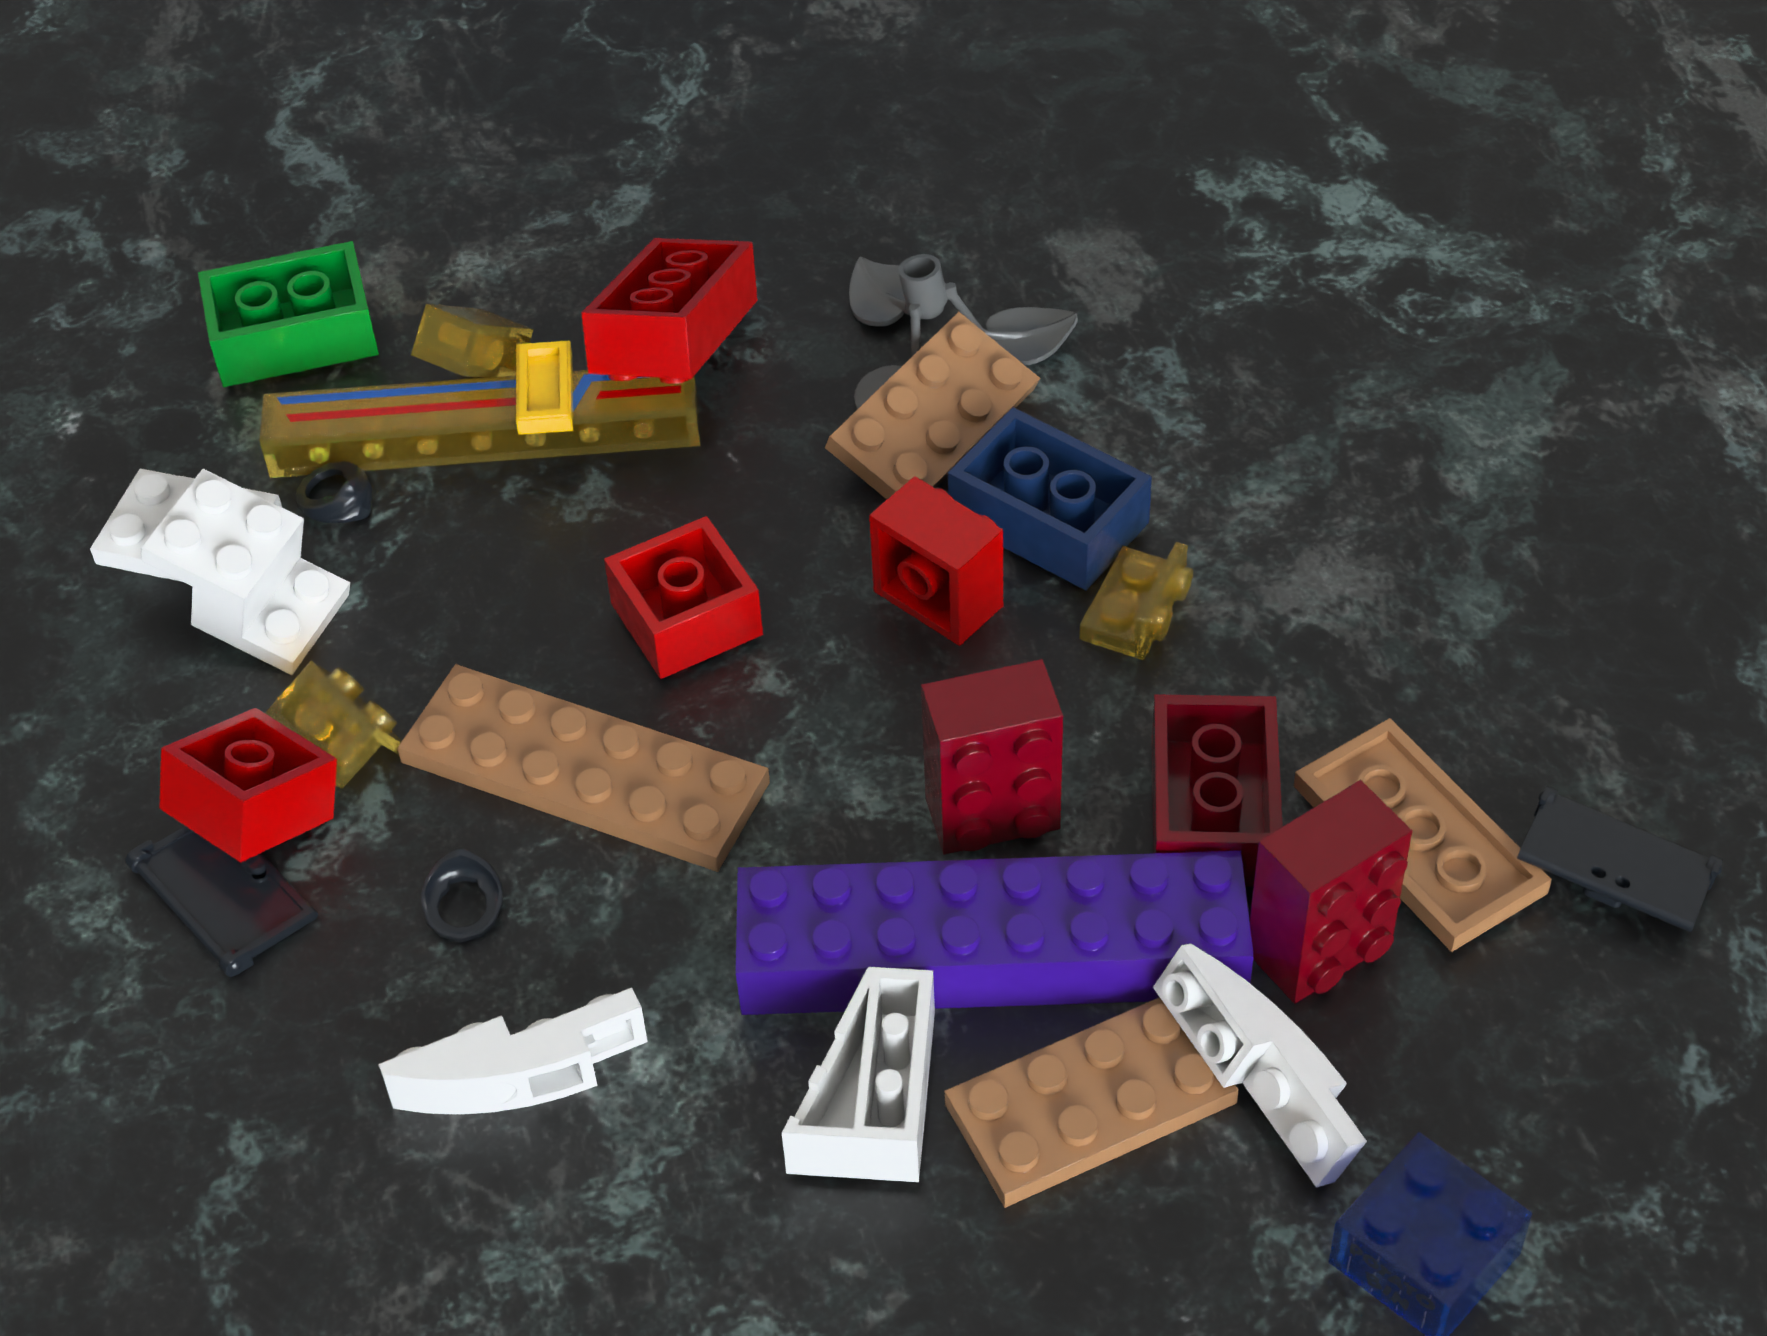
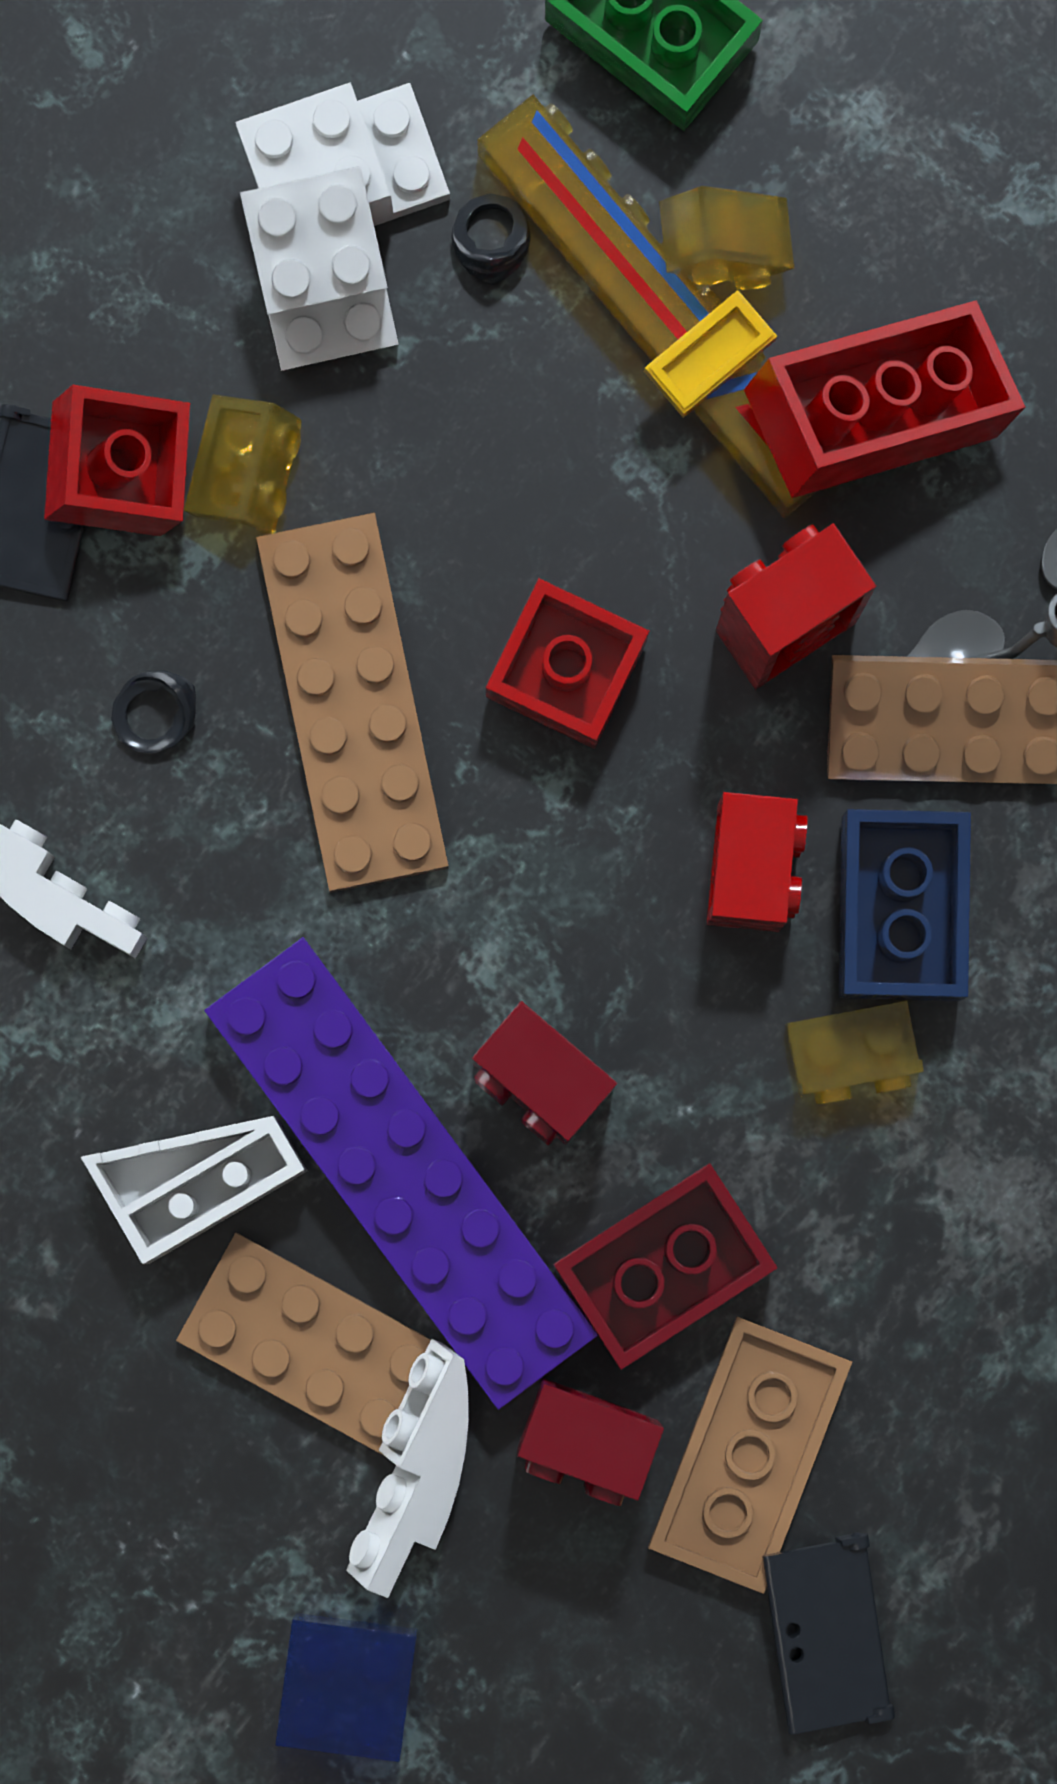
camera: 50 degrees right, 35 degrees up
(767, 404) = (794, 604): none -> red brick

